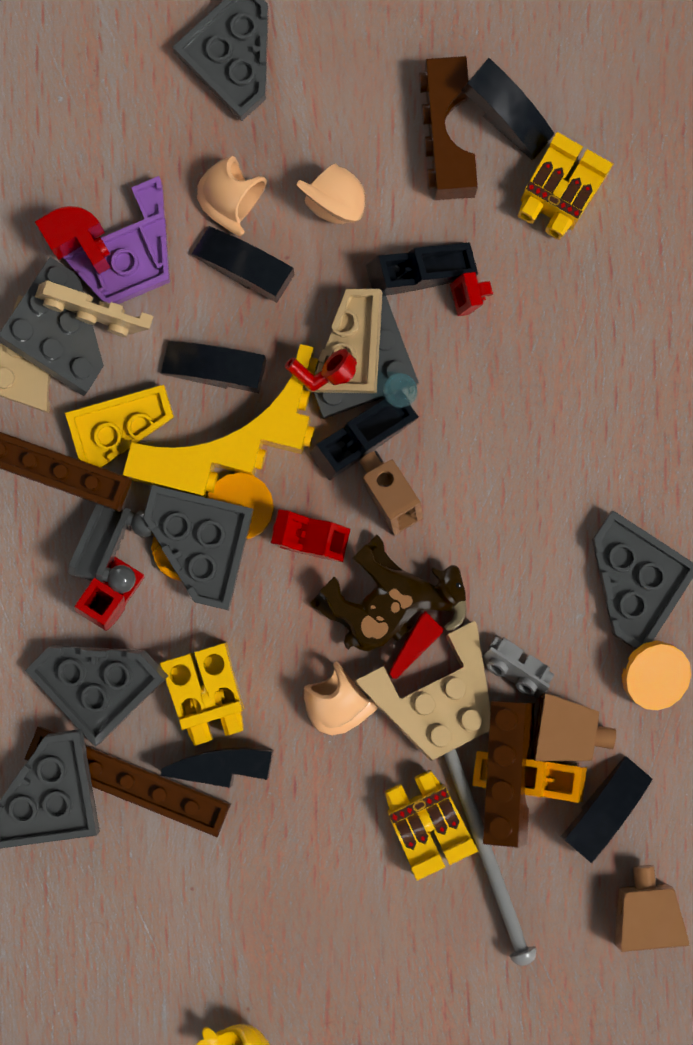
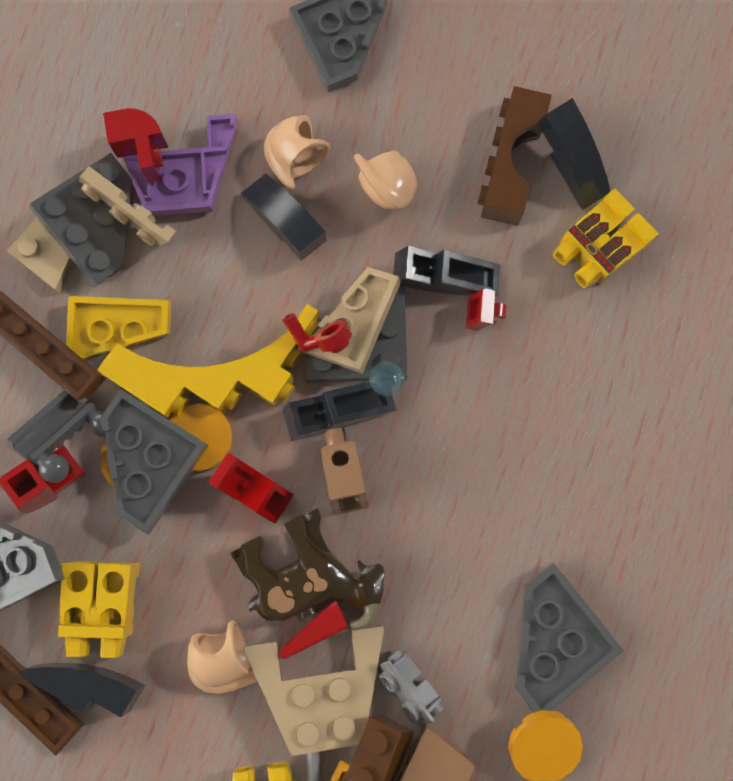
camera: 20 degrees right, 5 degrees down
(214, 365) = (223, 299): black slope -> none

